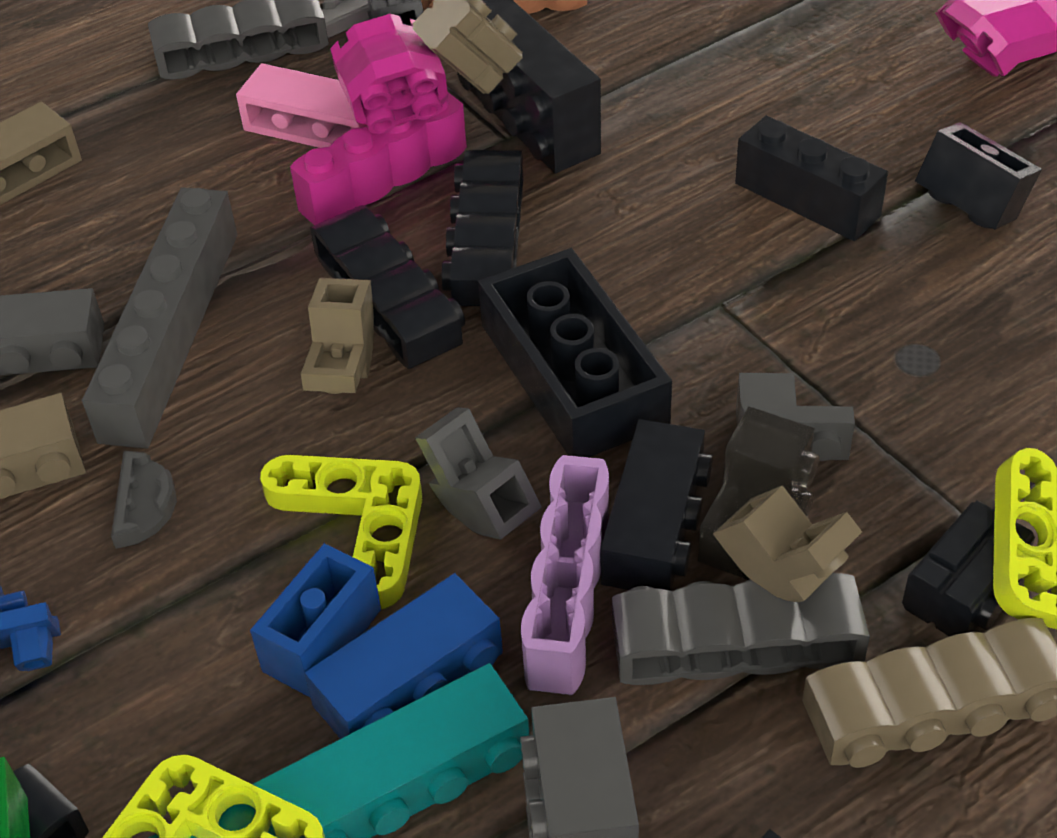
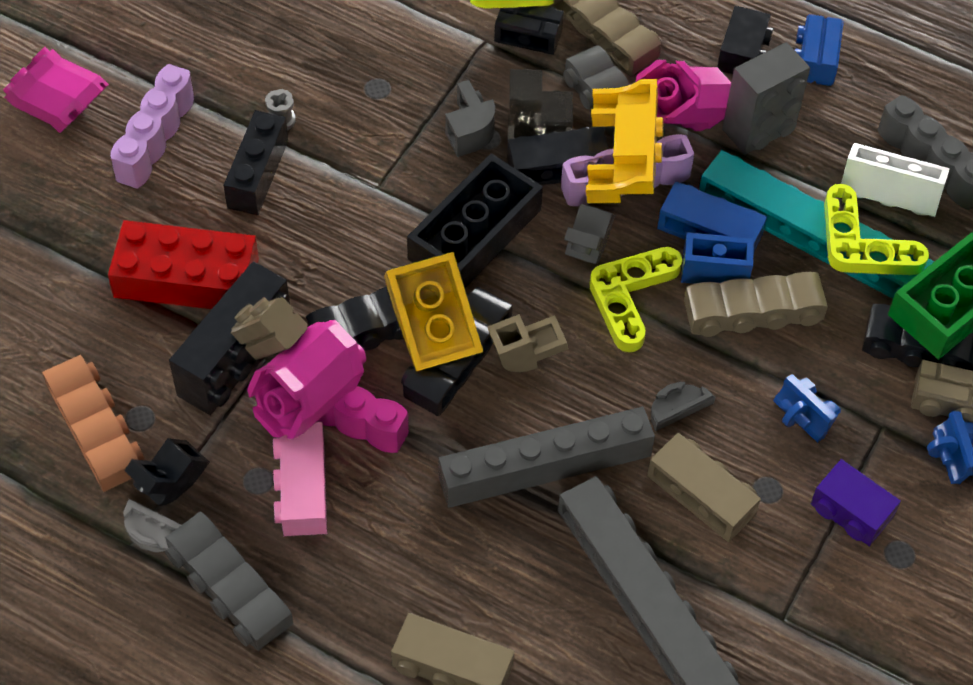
camera: 120 degrees left, 10 degrees up
(212, 660) = (755, 303): none -> dark tan brick
(435, 232) = (433, 311): none -> yellow slope
(577, 531) = (636, 148): none -> yellow bracket
(673, 82) = (178, 263): none -> red brick
(677, 704) = (689, 94): none -> dark pink brick
(781, 546) = (584, 65): dark tan brick -> none
(901, 219) = (276, 105): none -> light grey bush
(911, 96) = (152, 126): none -> lavender brick
(977, 176) = (225, 77): black brick -> none

